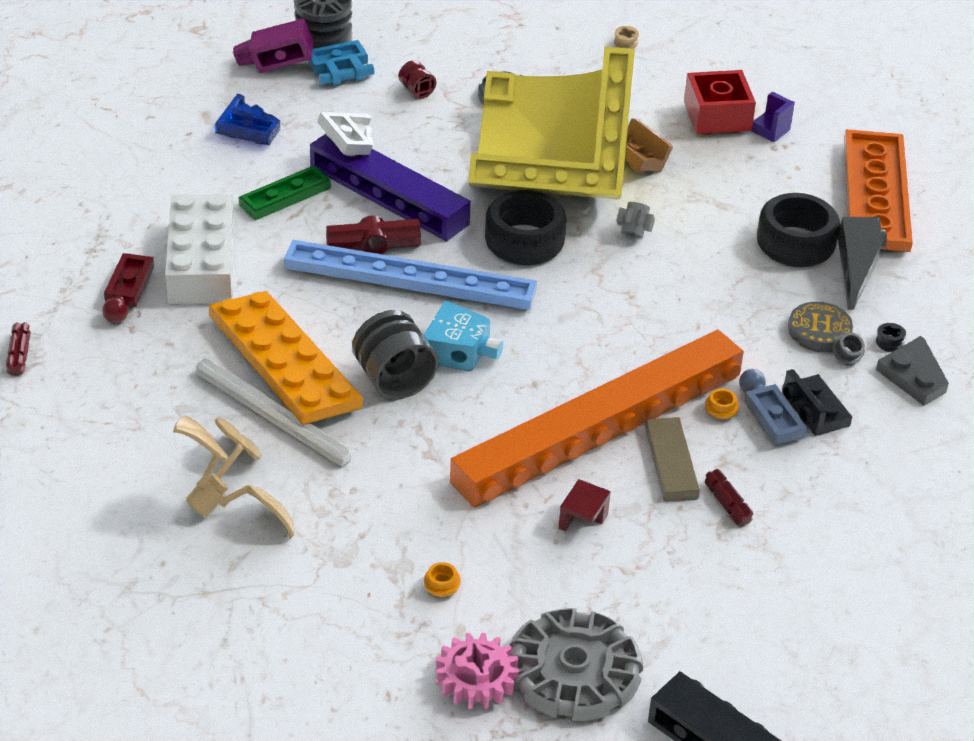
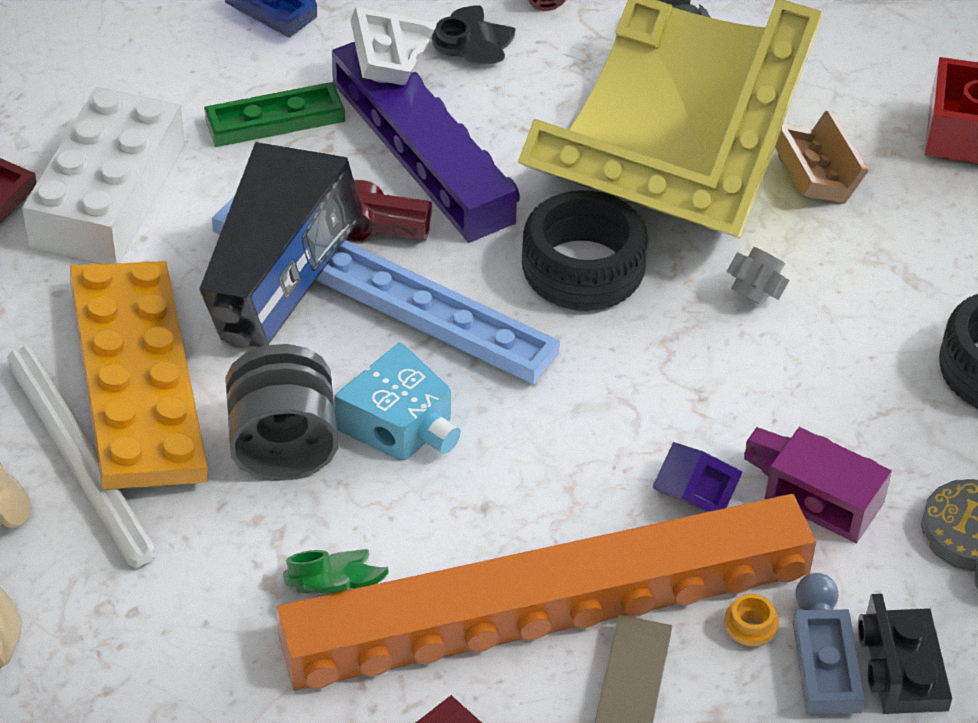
camera: 20 degrees right, 5 degrees up
(345, 252) = (277, 239): none -> black slope
(389, 122) = (472, 37): none -> black plate
(459, 437) = (331, 573): none -> green plate
(654, 335) = (697, 478): none -> dark purple panel
(736, 318) = (827, 480): none -> magenta hinge

